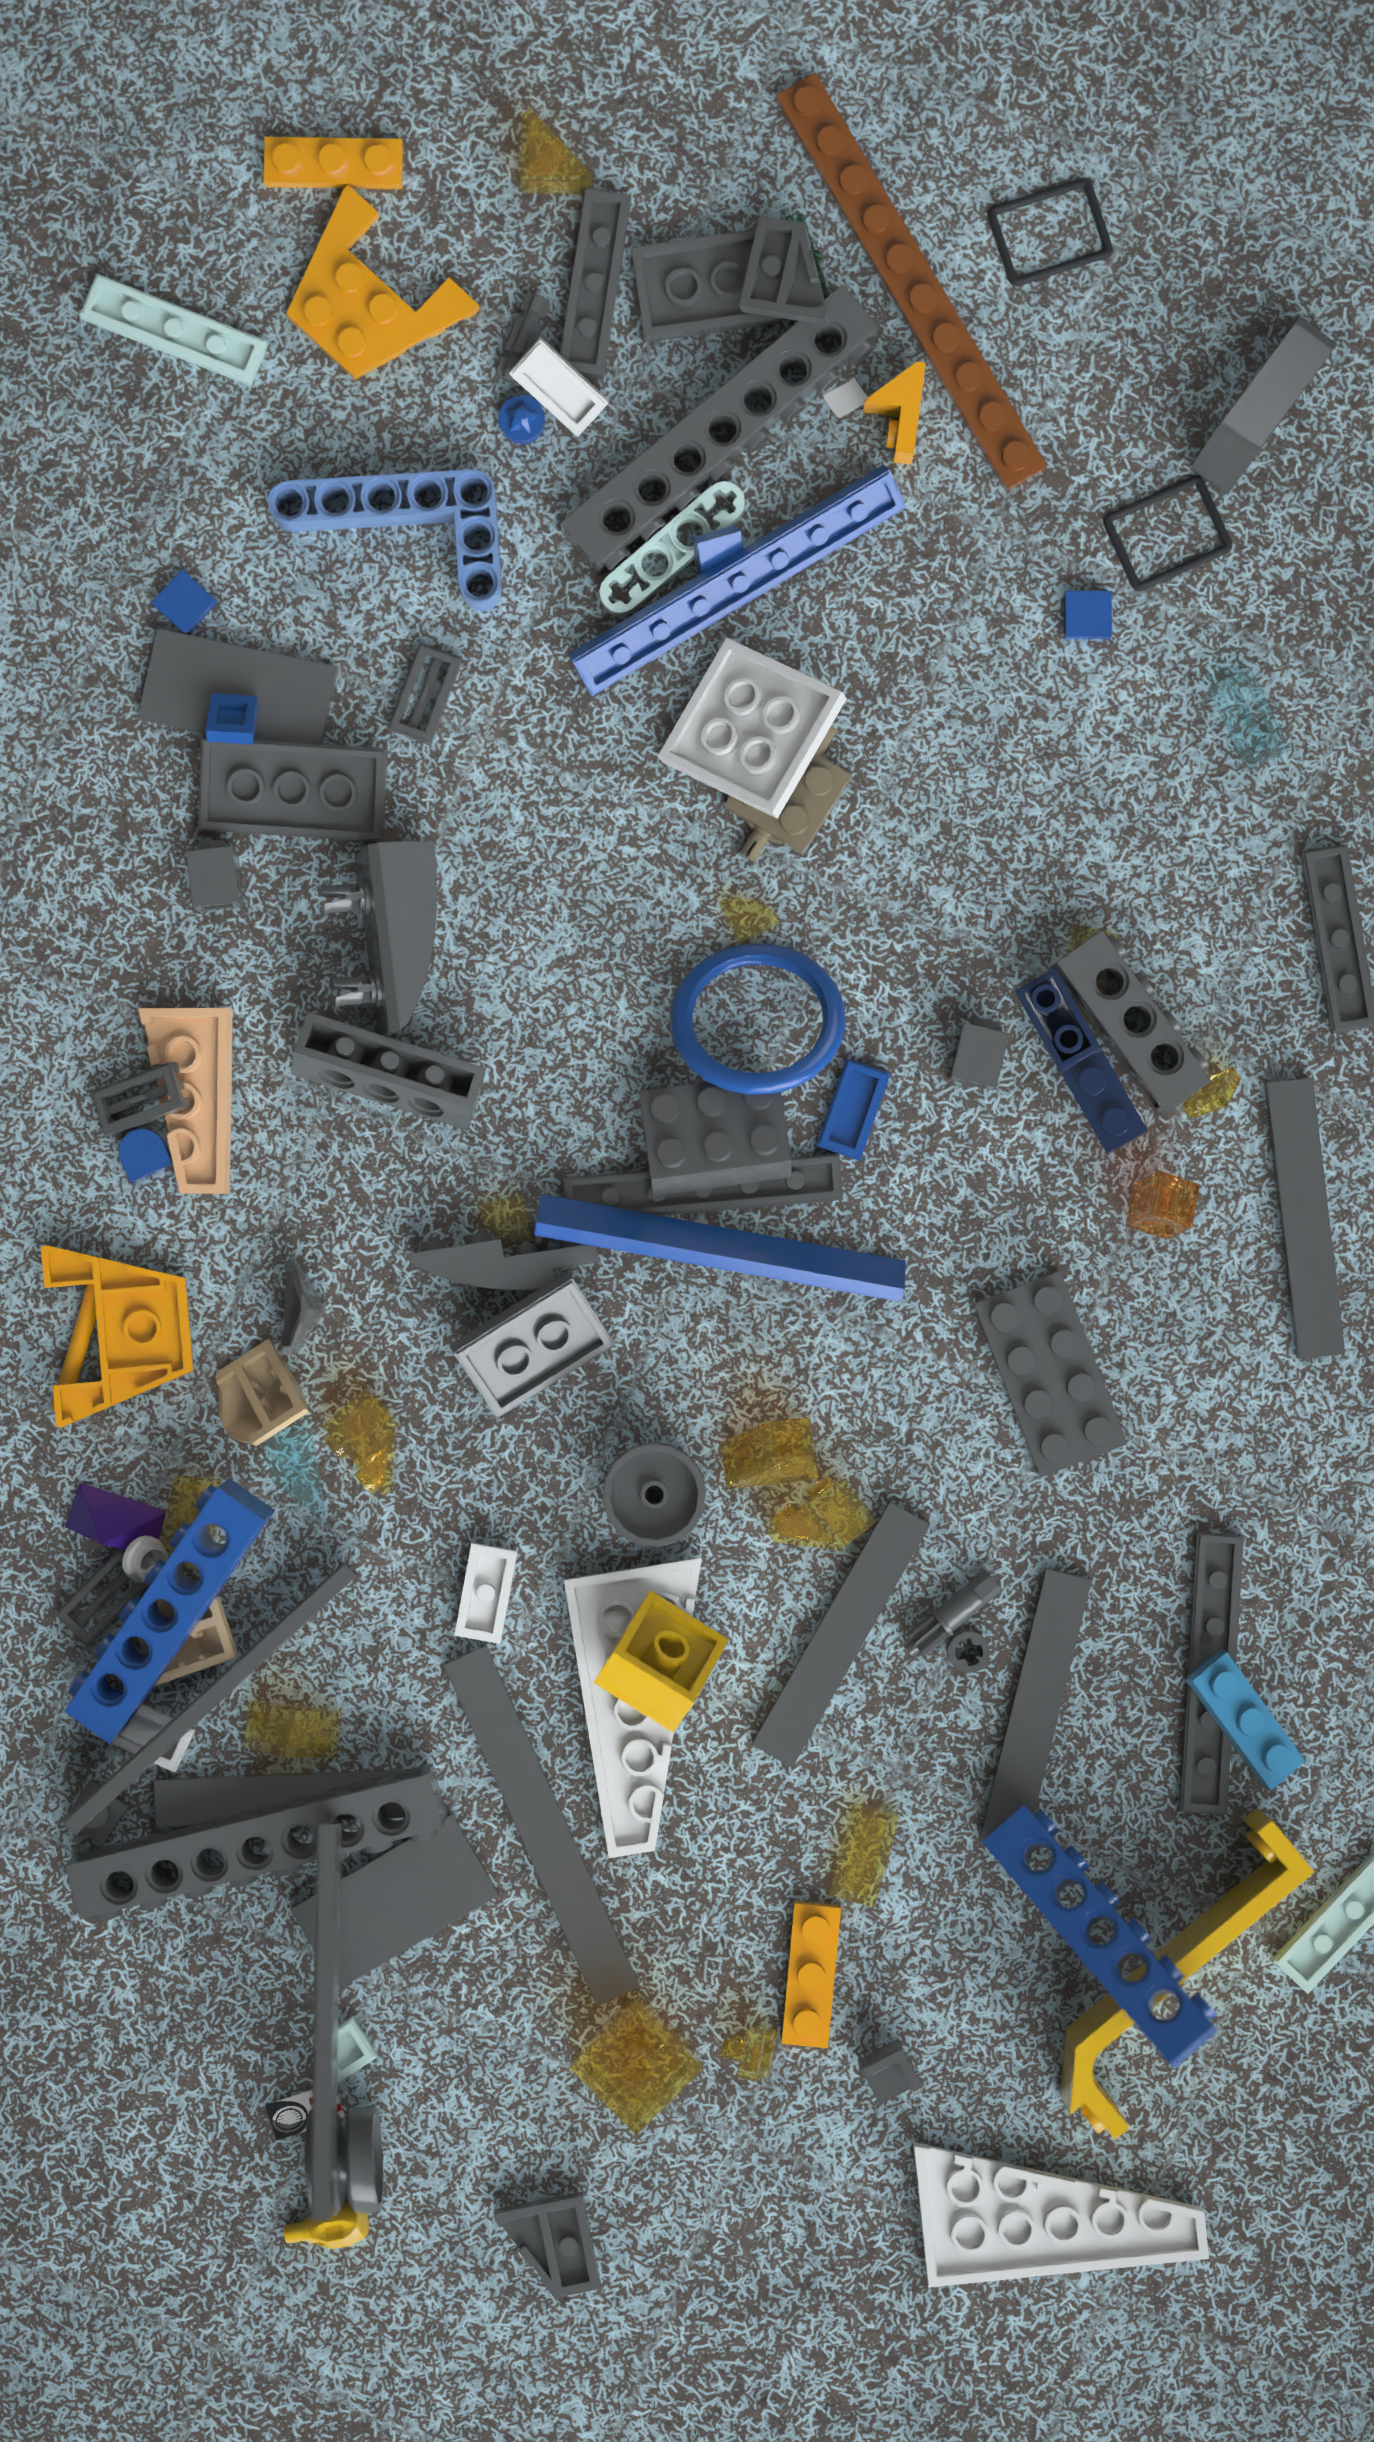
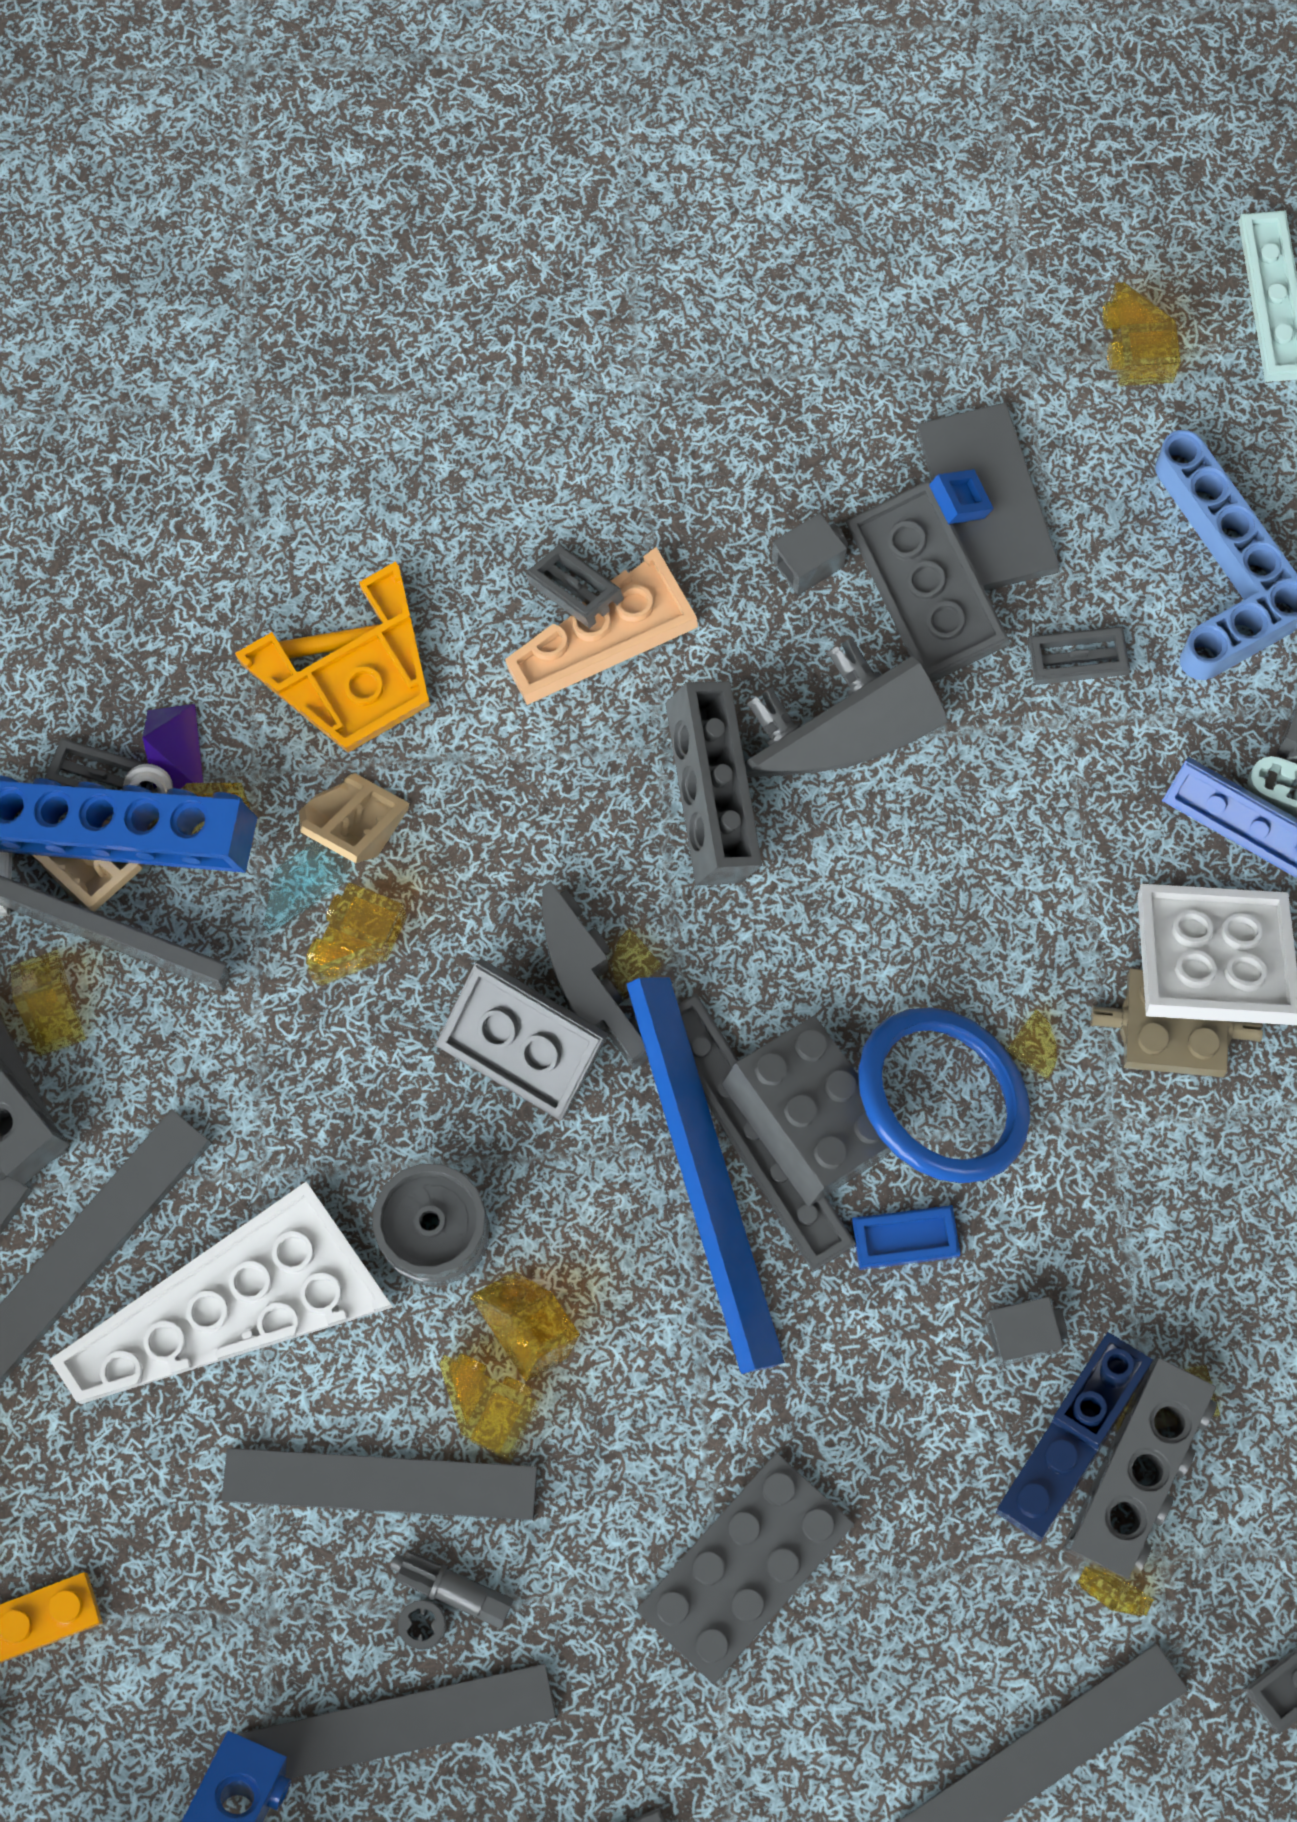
camera: 65 degrees right, 15 degrees down
(143, 1154) = (525, 614): blue tile -> none
(160, 474) = (1143, 339): none -> clear yellow slope
(184, 602) = (1041, 415): blue tile -> none
(302, 1308) = (450, 816): dark grey slope -> none
(486, 1593) = (260, 1115): white plate -> none
(661, 1661) = (267, 1309): yellow slope -> none
(864, 1855) = (164, 1621): clear yellow tile -> none
(1162, 1205) = (975, 1594): clear orange brick -> none

